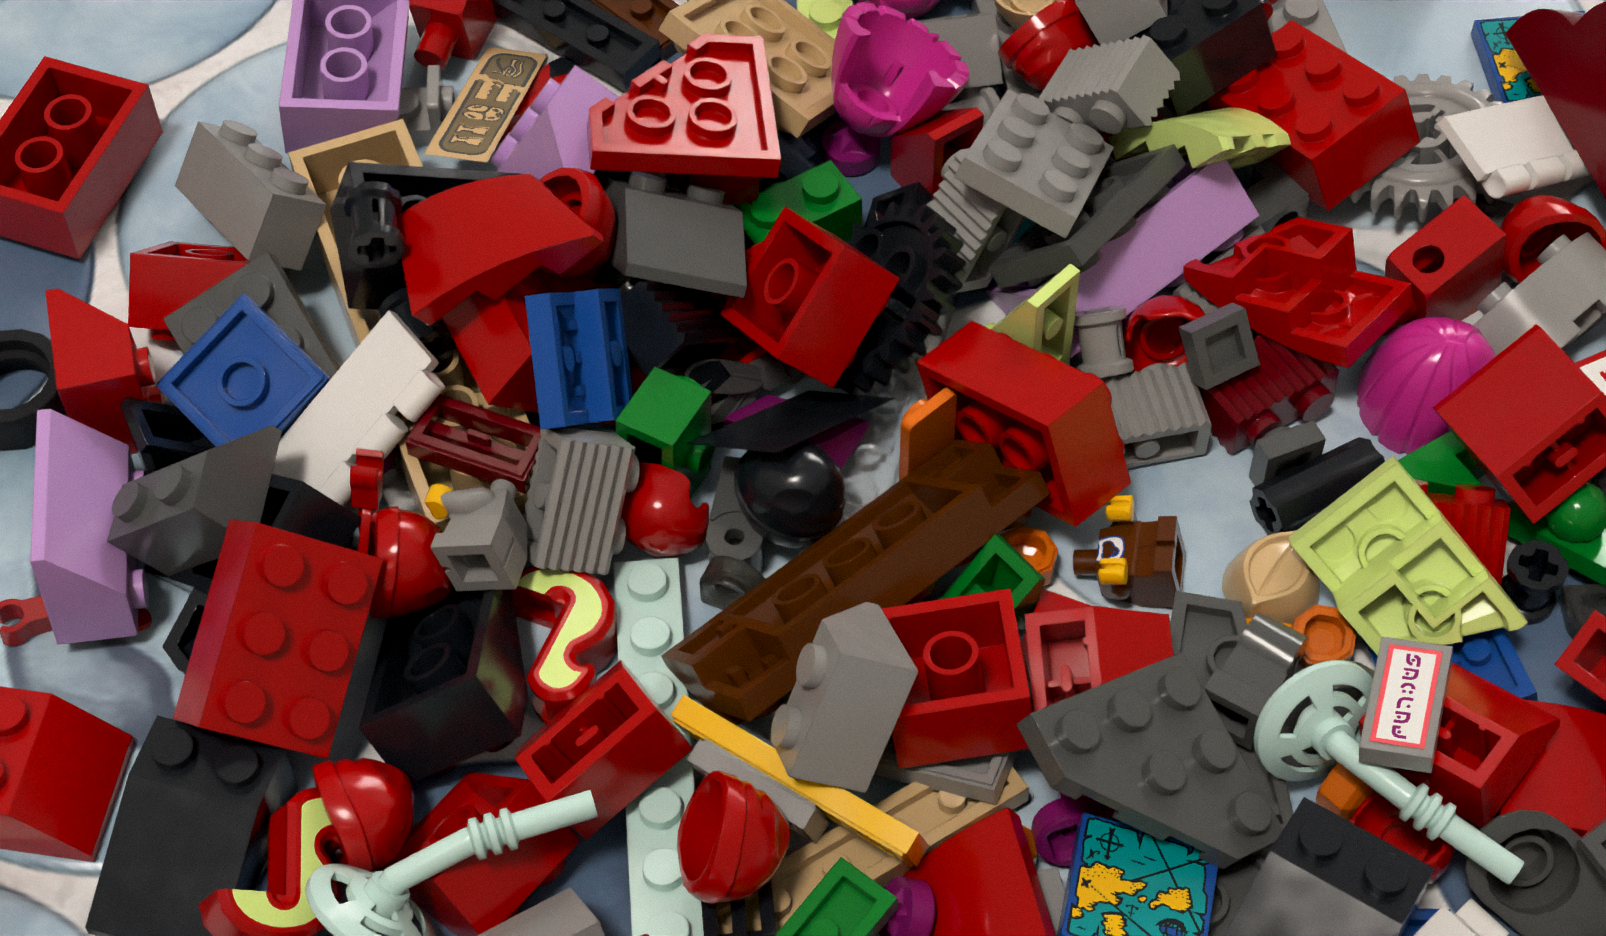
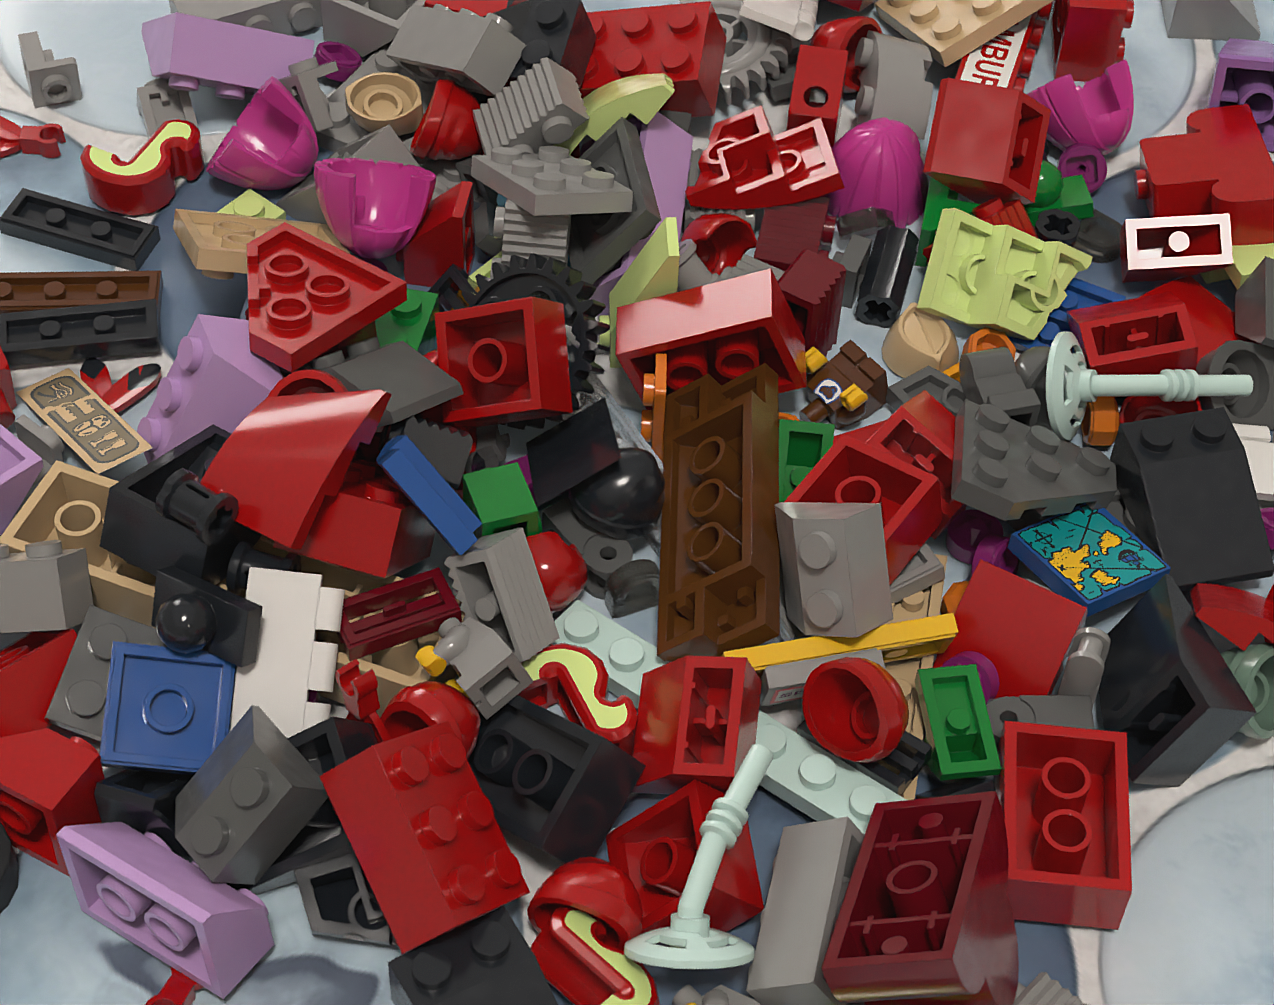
camera: 50 degrees left, 5 degrees down
(318, 323) = (204, 616): none -> black tile
(1174, 457) = (815, 295): none -> dark red brick
(1219, 346) = (765, 224): dark grey plate -> none
(1361, 422) = (864, 222): none -> clear smoke tile
(1406, 704) = (1113, 332): tile -> none

